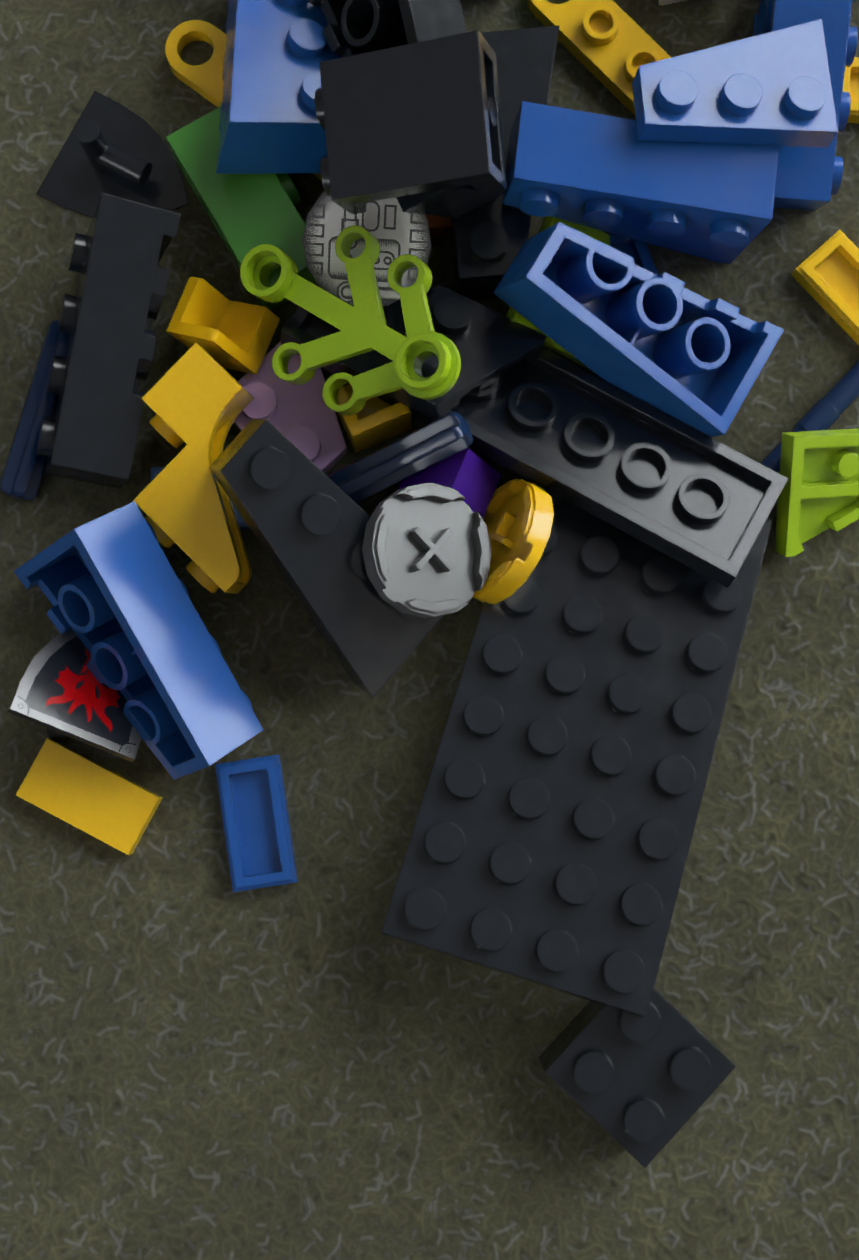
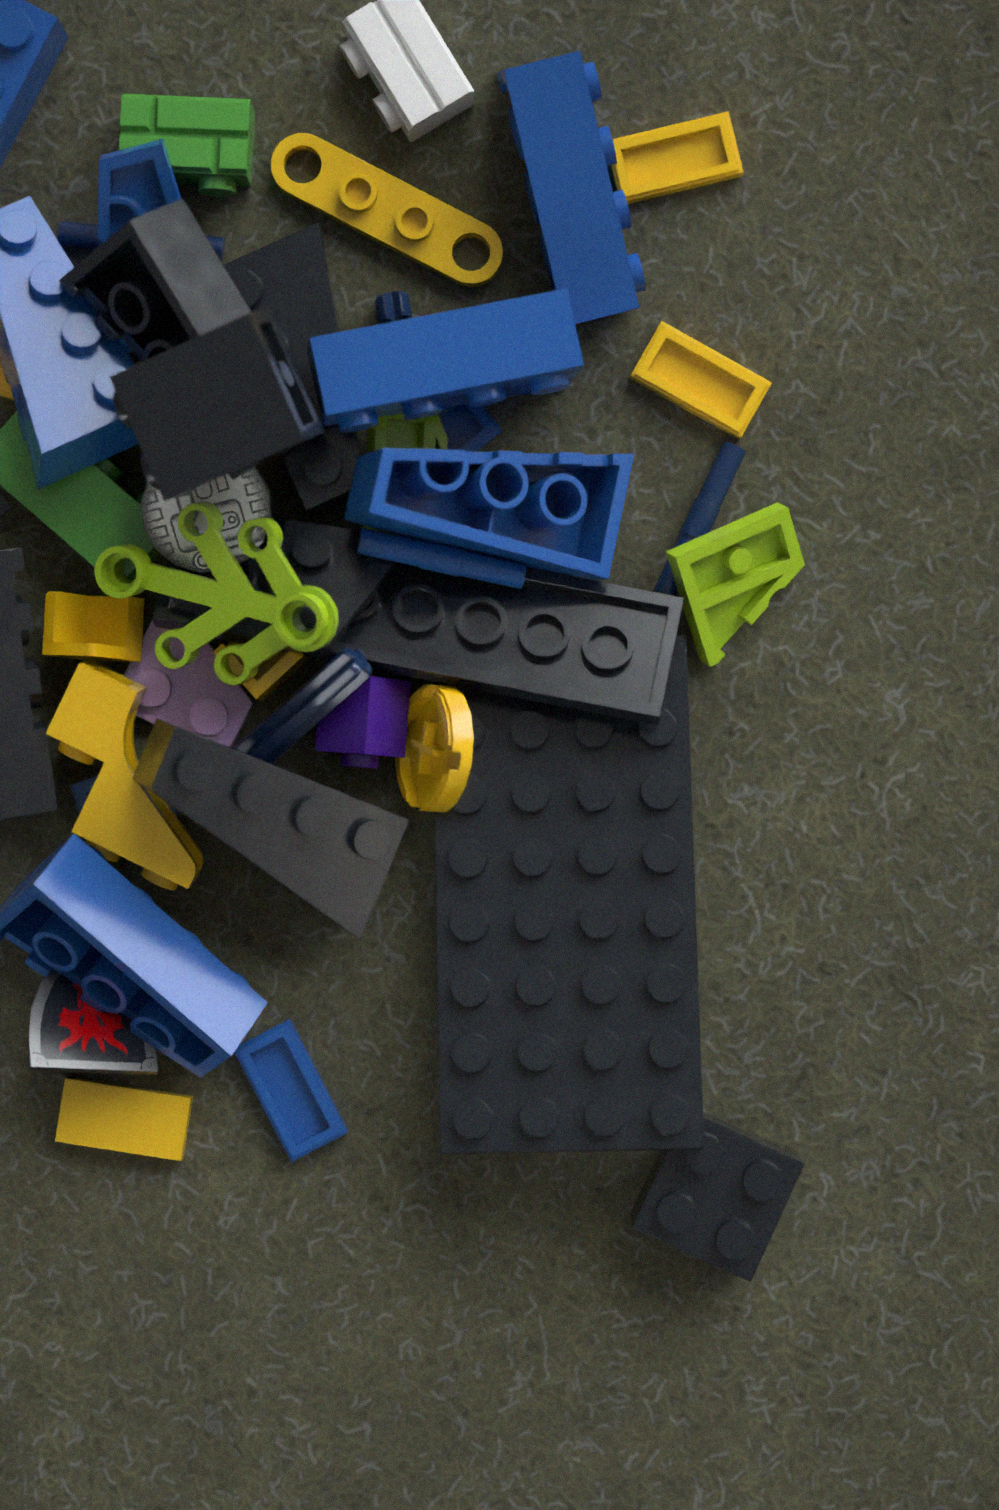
camera: 15 degrees left, 5 degrees up
(426, 550) = (364, 789): tile -> none
(572, 363) = (441, 558): none -> blue piece
(742, 92) = (515, 252): wing -> none

